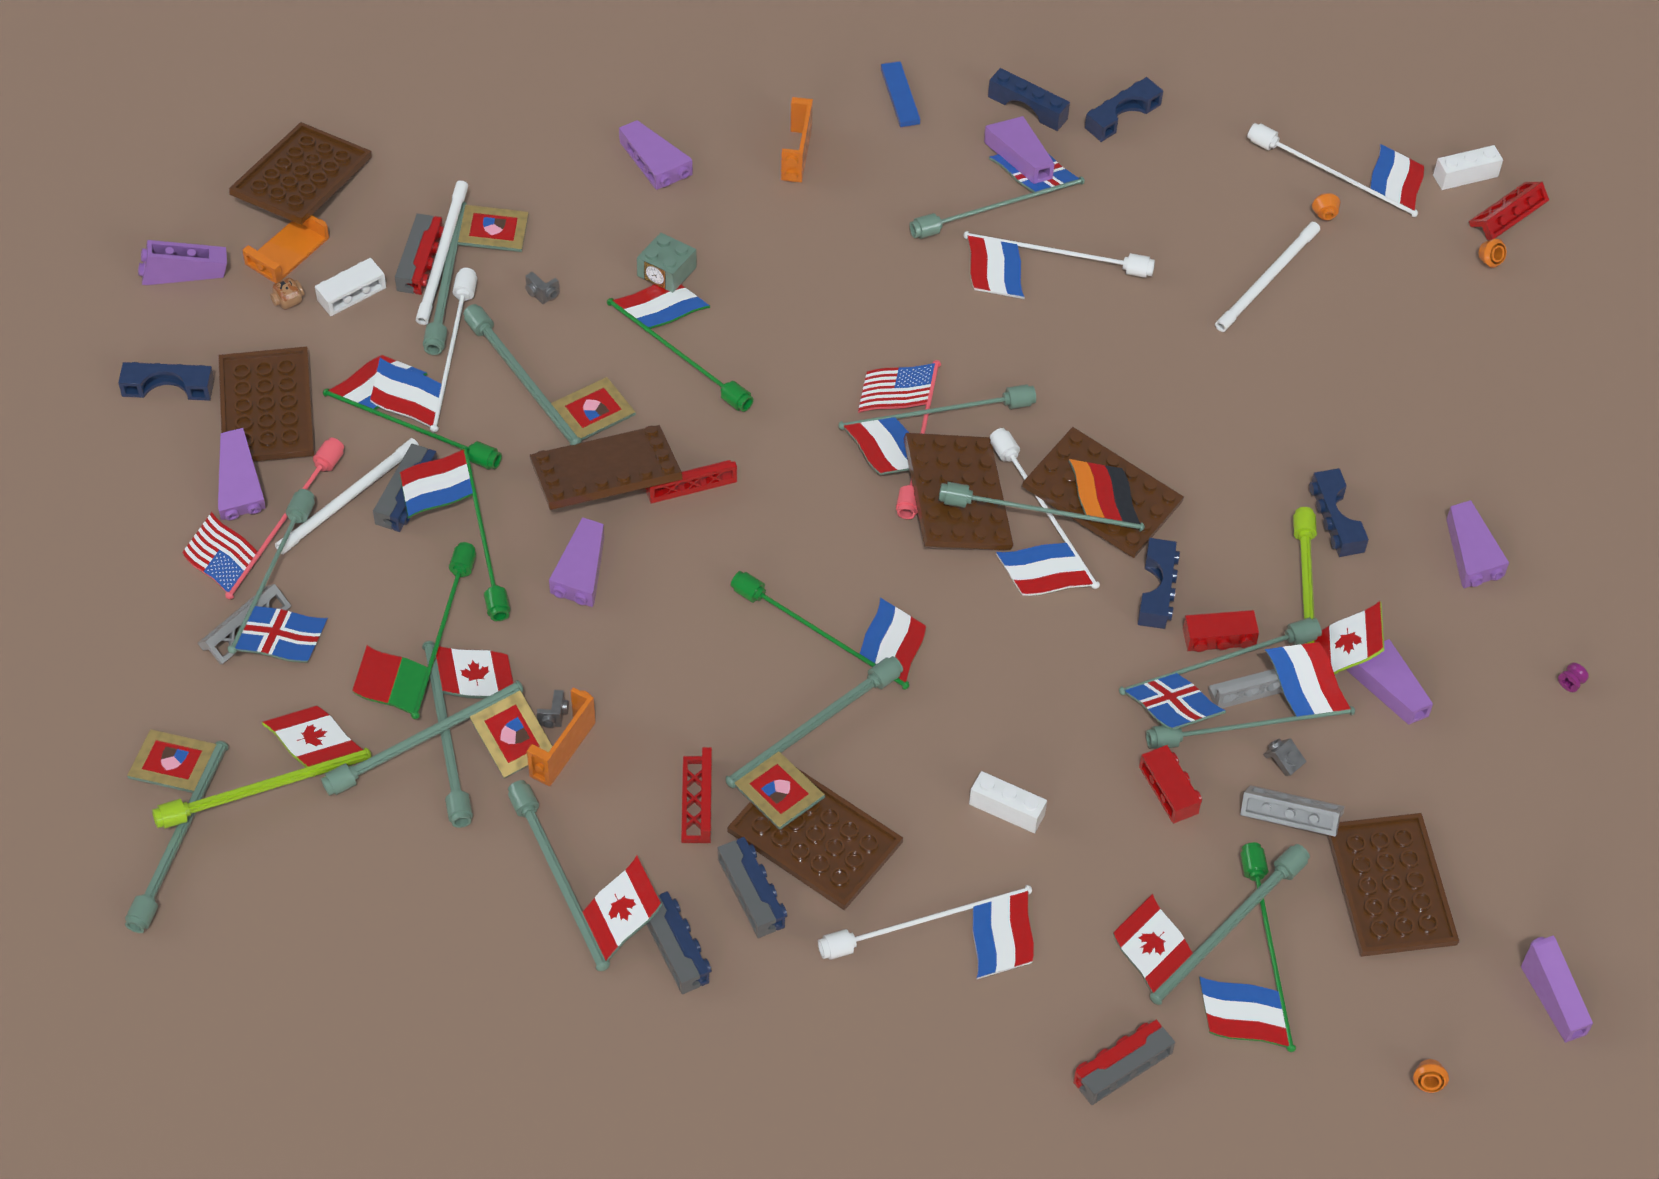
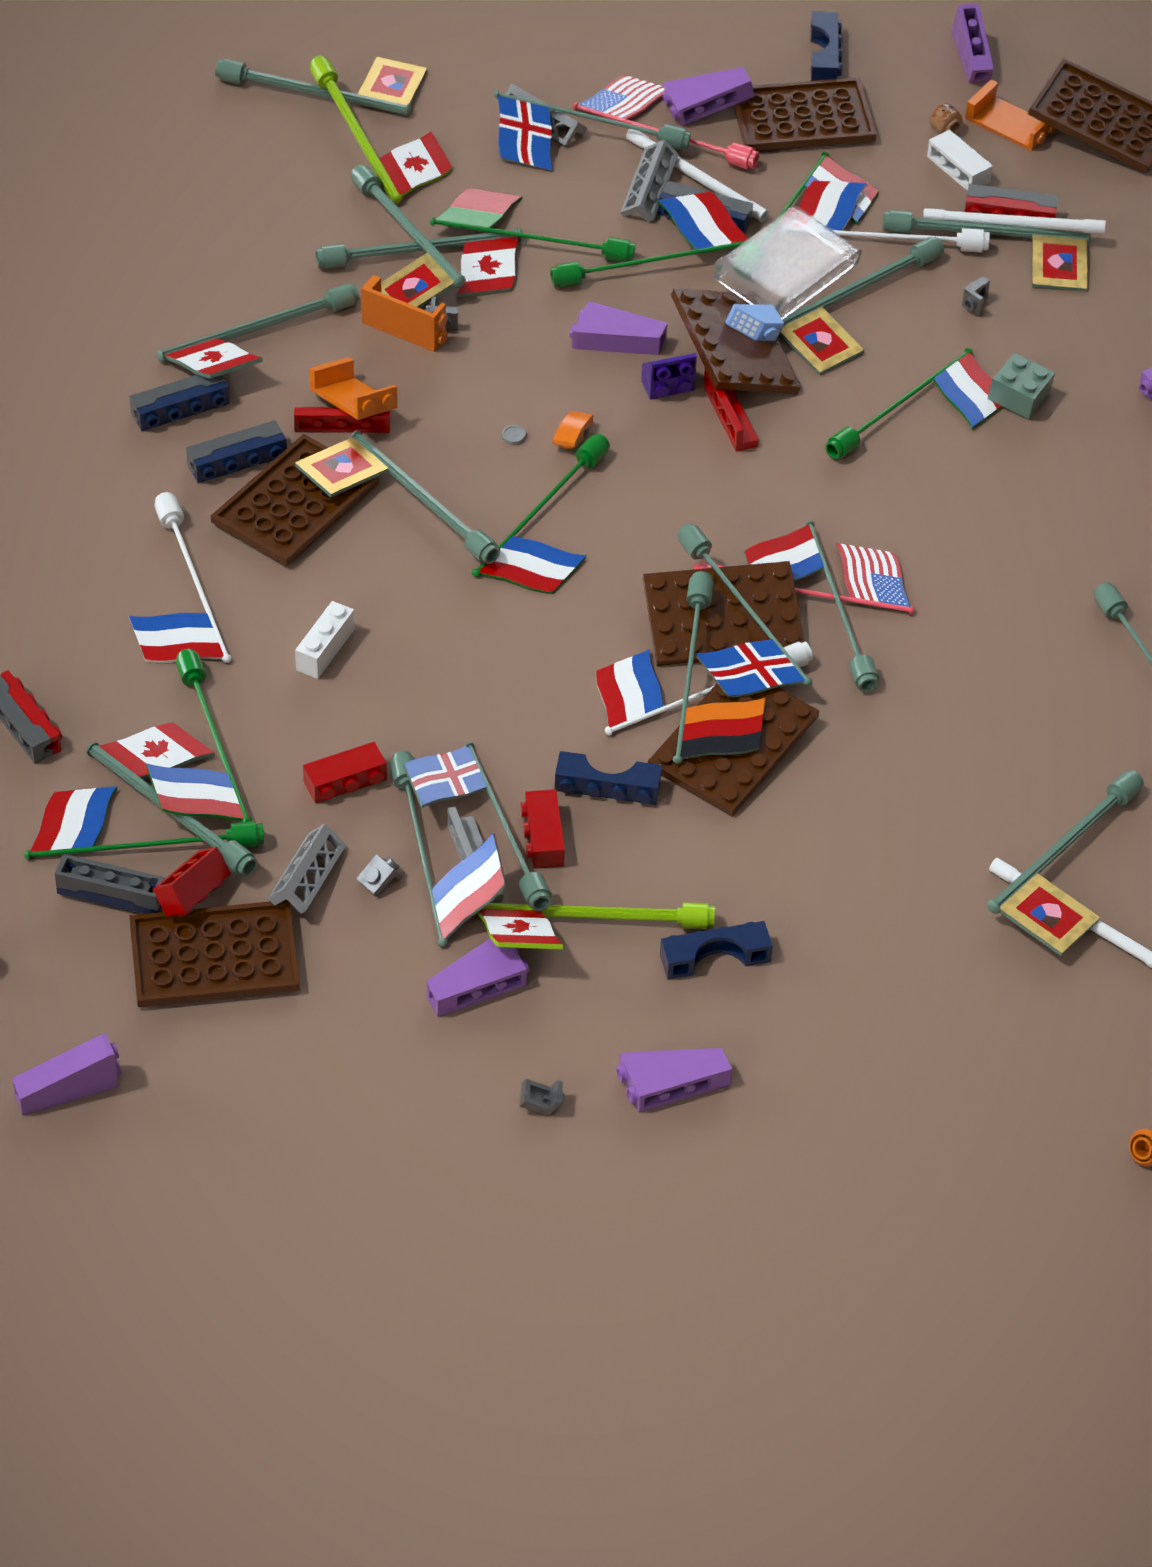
camera: 90 degrees right, 5 degrees down
(366, 523) = (650, 180): none -> light grey fence
(504, 418) = (787, 262): none -> clear windscreen
(587, 443) = (756, 321): none -> light blue slope
(648, 519) = (669, 376): none -> dark purple slope
(678, 780) = (338, 386): none -> orange panel
(716, 655) = (513, 434): none -> light grey piece
(718, 601) = (572, 429): none -> orange slope
(998, 264) = (1069, 667): flag -> none
(1028, 460) = (751, 665): none -> flag
(1210, 895) = (197, 790): none -> flag
(1267, 297) = (1042, 906): none -> flag
(1328, 894) = (192, 882): none -> red brick
(1333, 967) = (107, 884): none -> dark grey piece
(1510, 634) = (540, 1097): none -> flat silver bracket
(1573, 677) = (483, 1152): magenta wheel -> none

